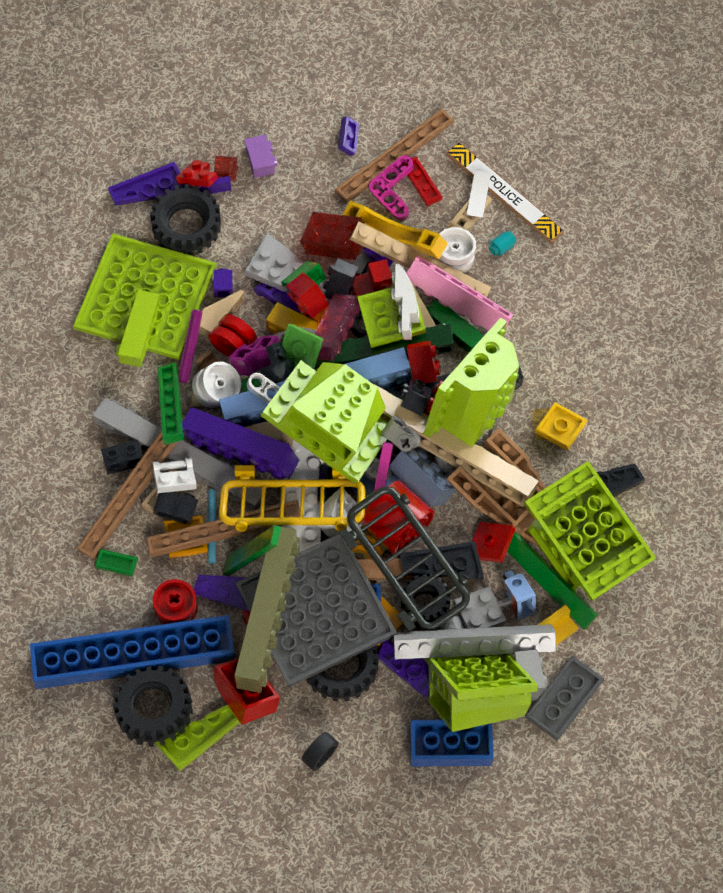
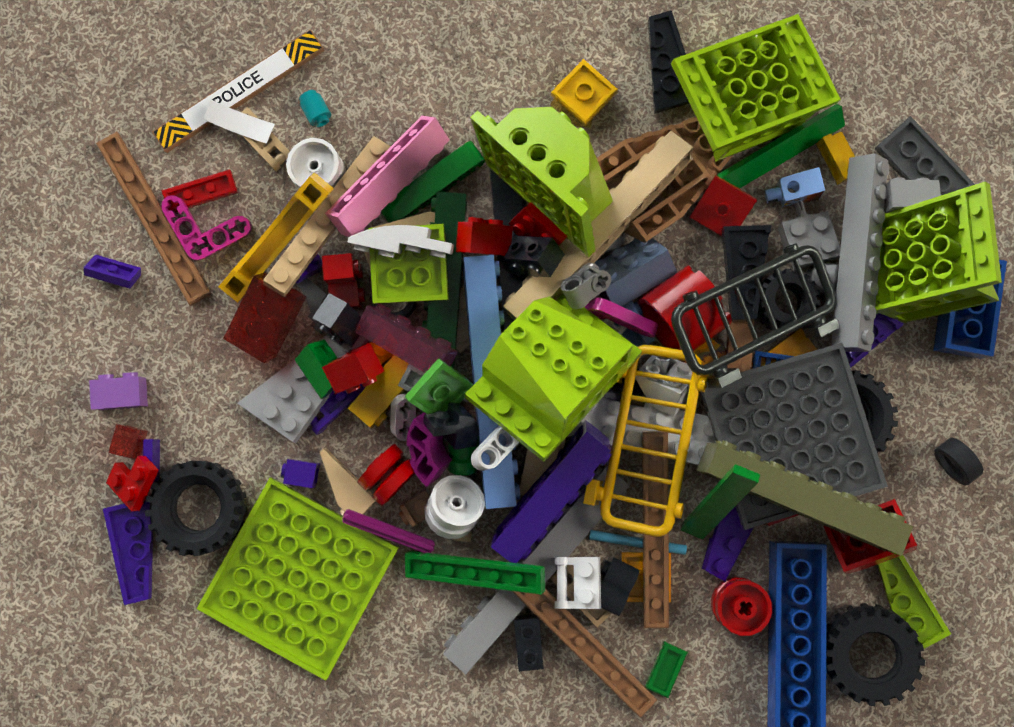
camera: 85 degrees left, 20 degrees up
(139, 328) = (350, 595): lime brick -> none

